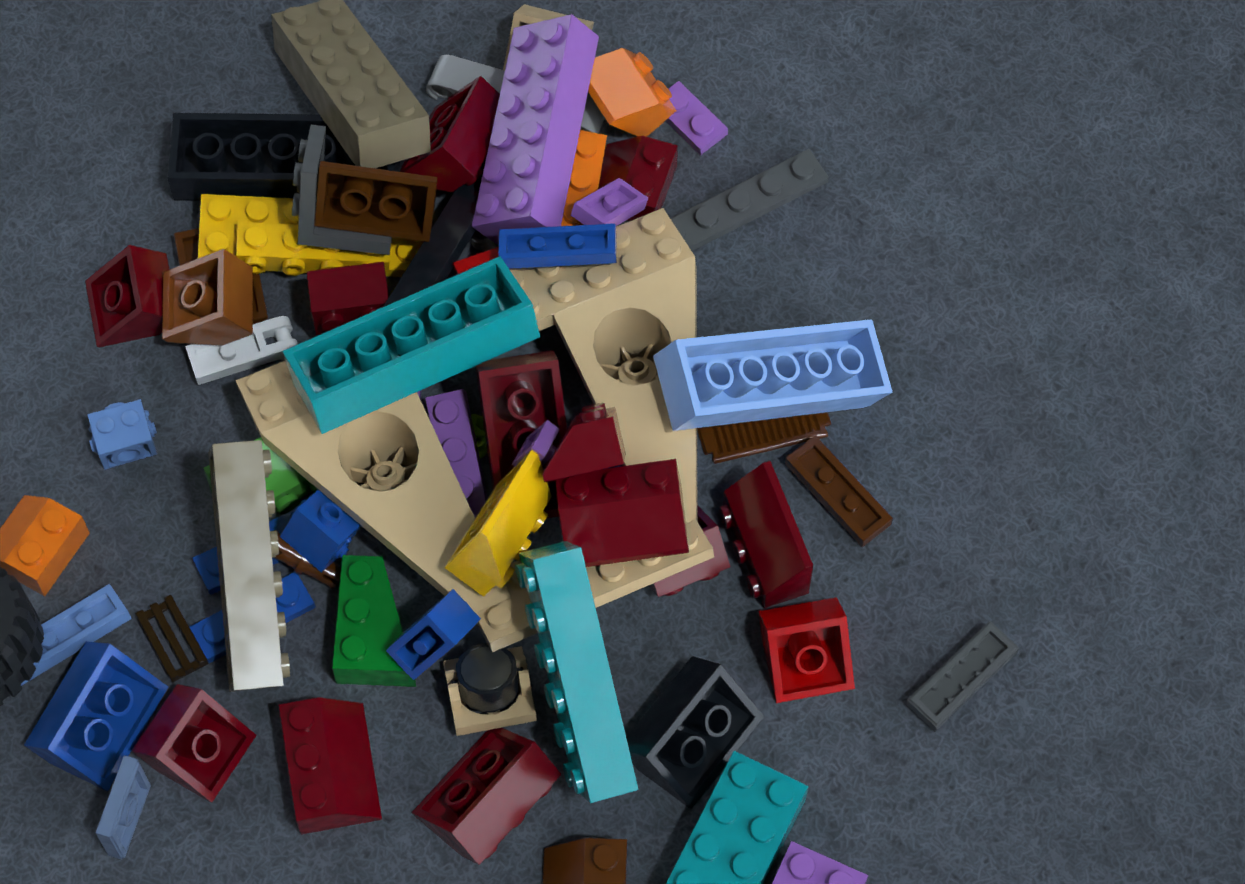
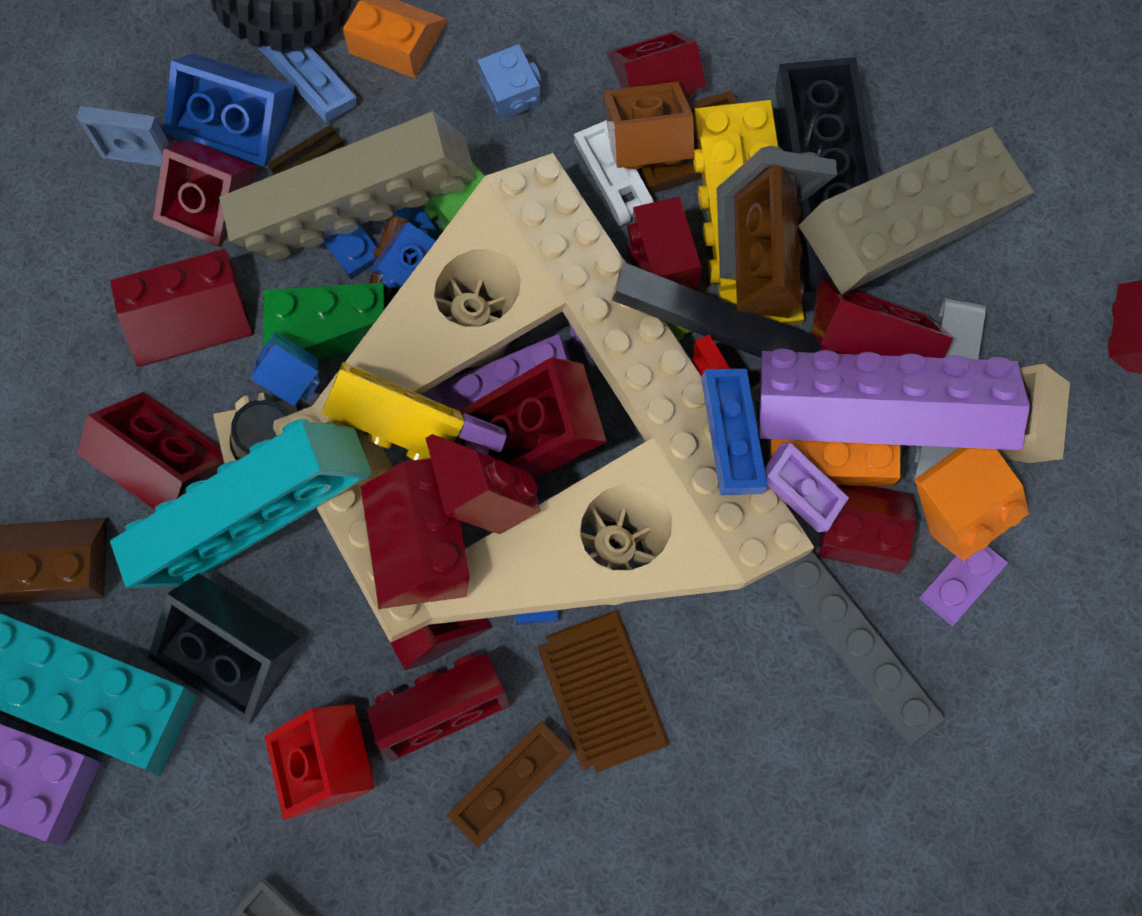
camera: 90 degrees right, 5 degrees up
(411, 344) = (579, 290): teal brick -> none
(771, 374) = (612, 688): light blue brick -> none

